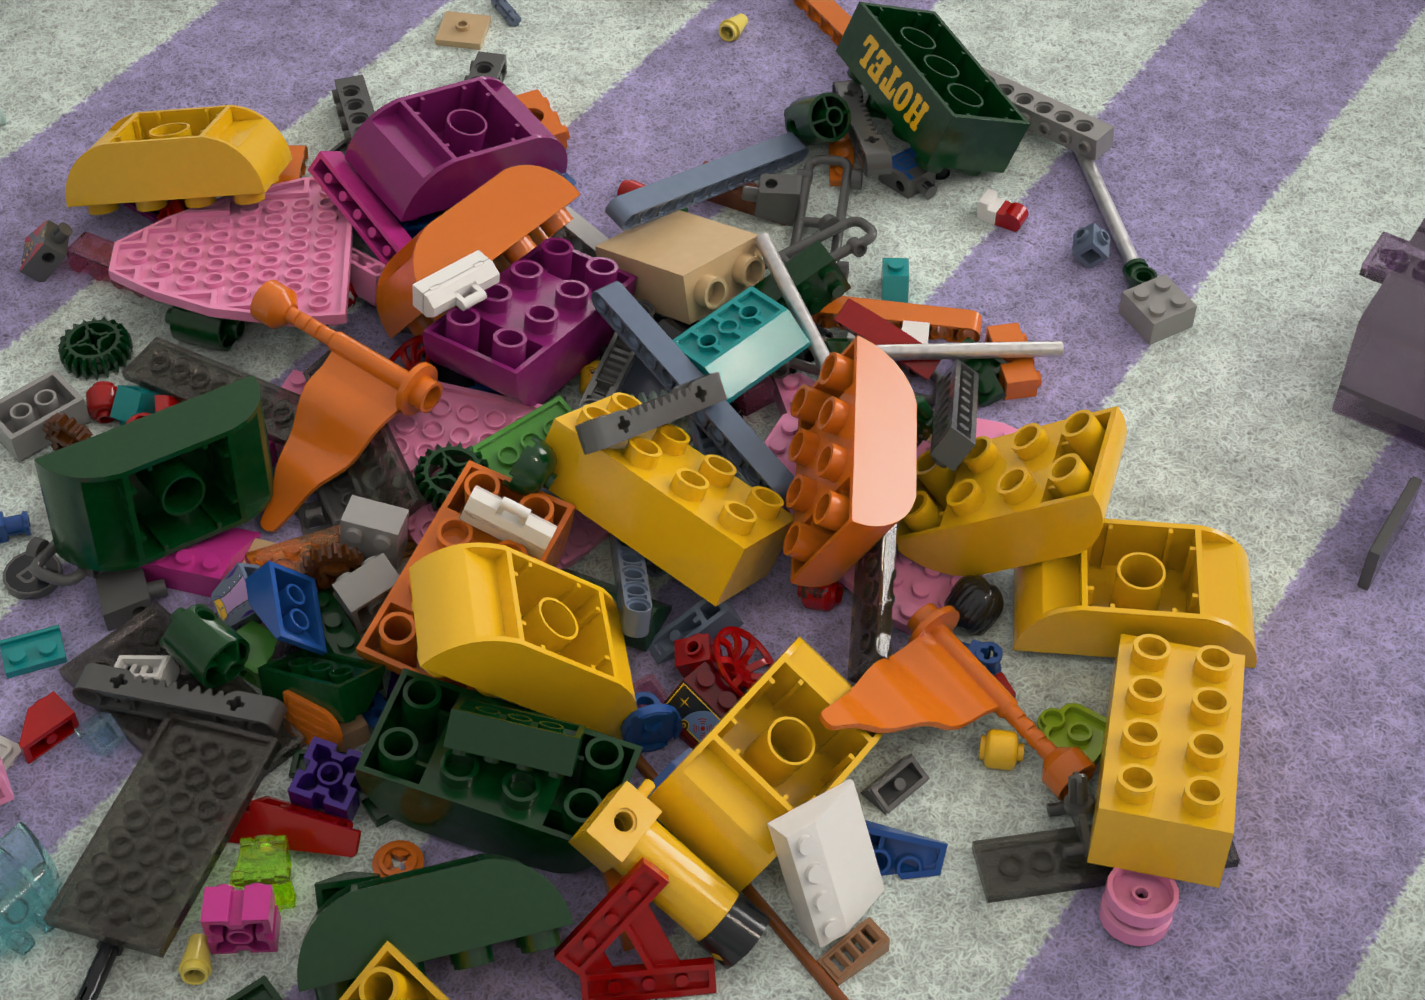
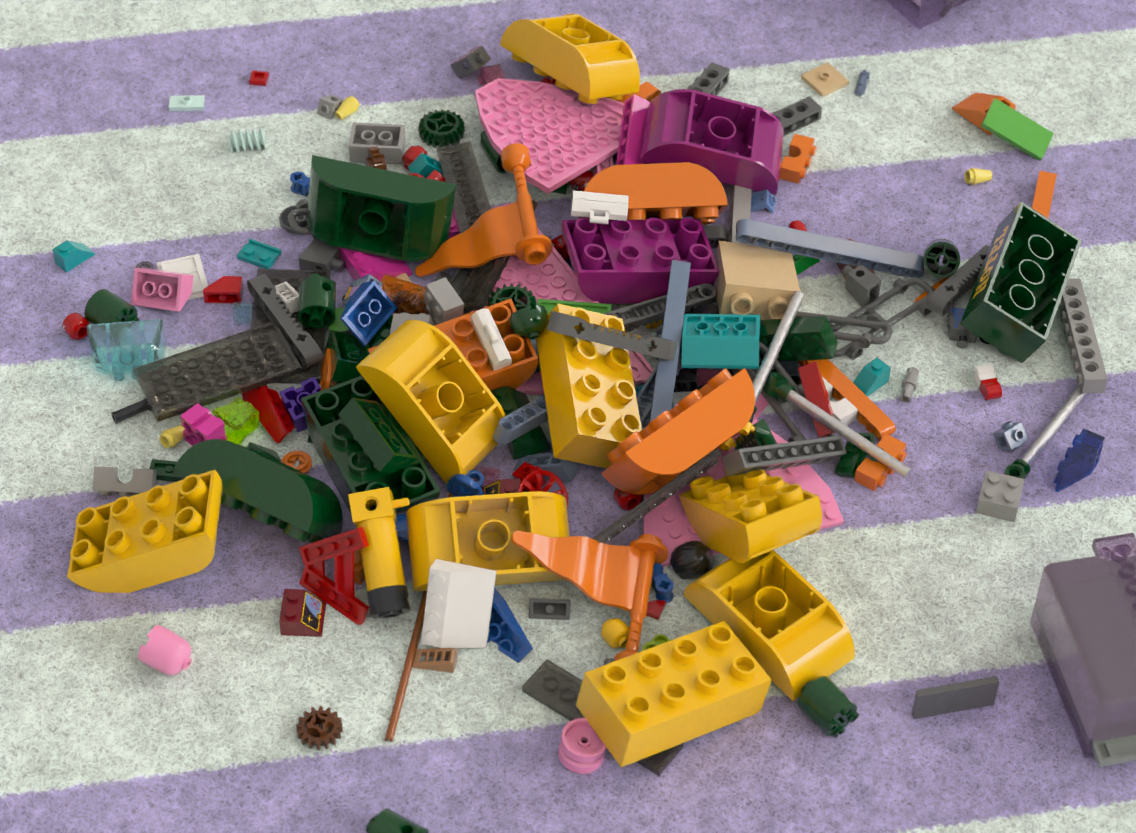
camera: 45 degrees right, 0 degrees up
(934, 267) = (909, 384): none -> light grey pin
(1178, 218) = (1079, 459): none -> clear blue slope
(1298, 642) = (827, 706): none -> dark green cylinder

